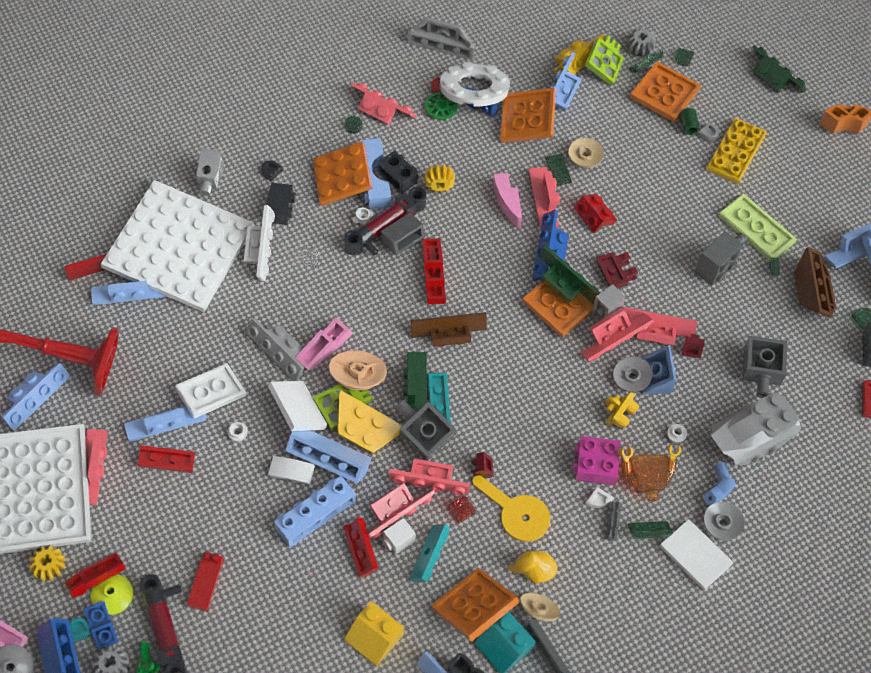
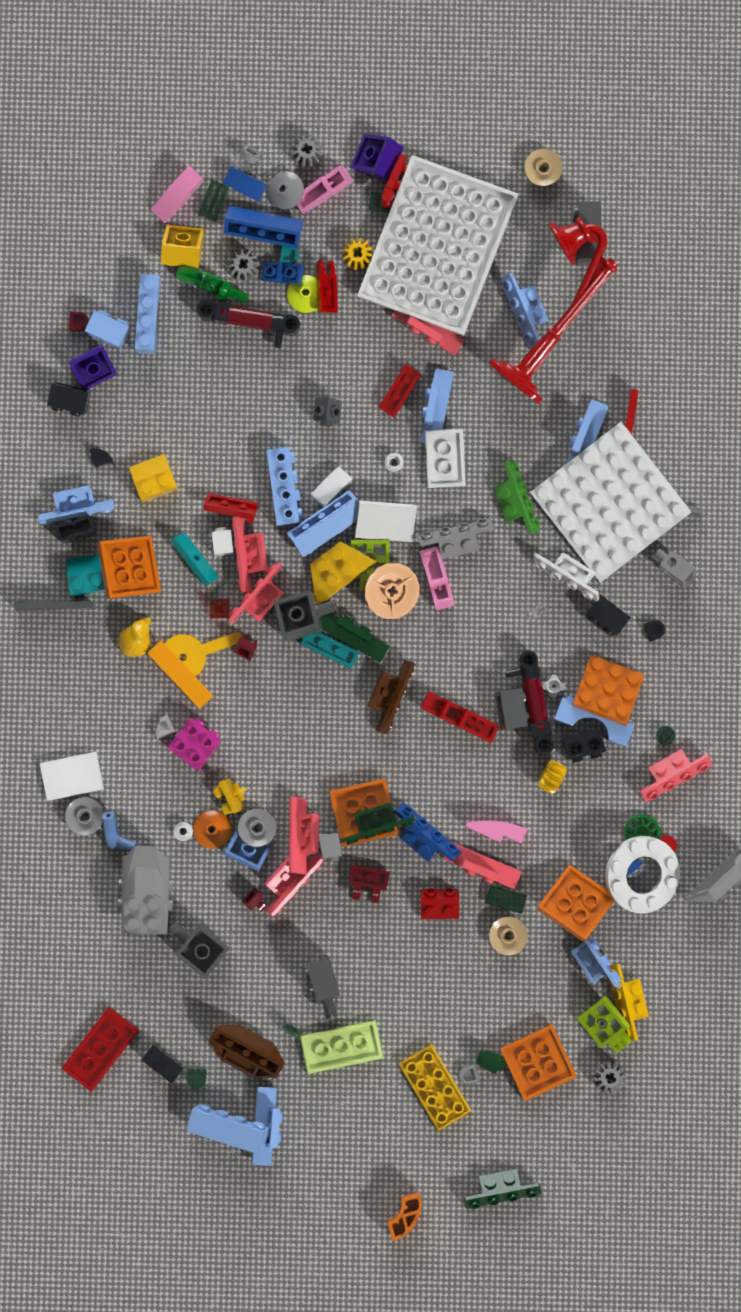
camera: 125 degrees right, 25 degrees up
(205, 581) = (273, 370): red hinge -> none
(217, 320) = (514, 498): none -> bright green bracket
(220, 508) = (327, 411): none -> dark grey brick
(539, 607) = (99, 625): tan dish -> none
(543, 509) = (180, 674): none -> light orange tile
(613, 521) = (137, 726): dark grey axle -> none
(647, 61) = (583, 1067): clear green tile -> none
(649, 472) = (160, 781): clear orange torso -> none
(650, 530) = (113, 751): clear green tile -> none
(654, 420) = (222, 831): none -> orange dish
(683, 57) = (571, 1111): clear green tile -> none

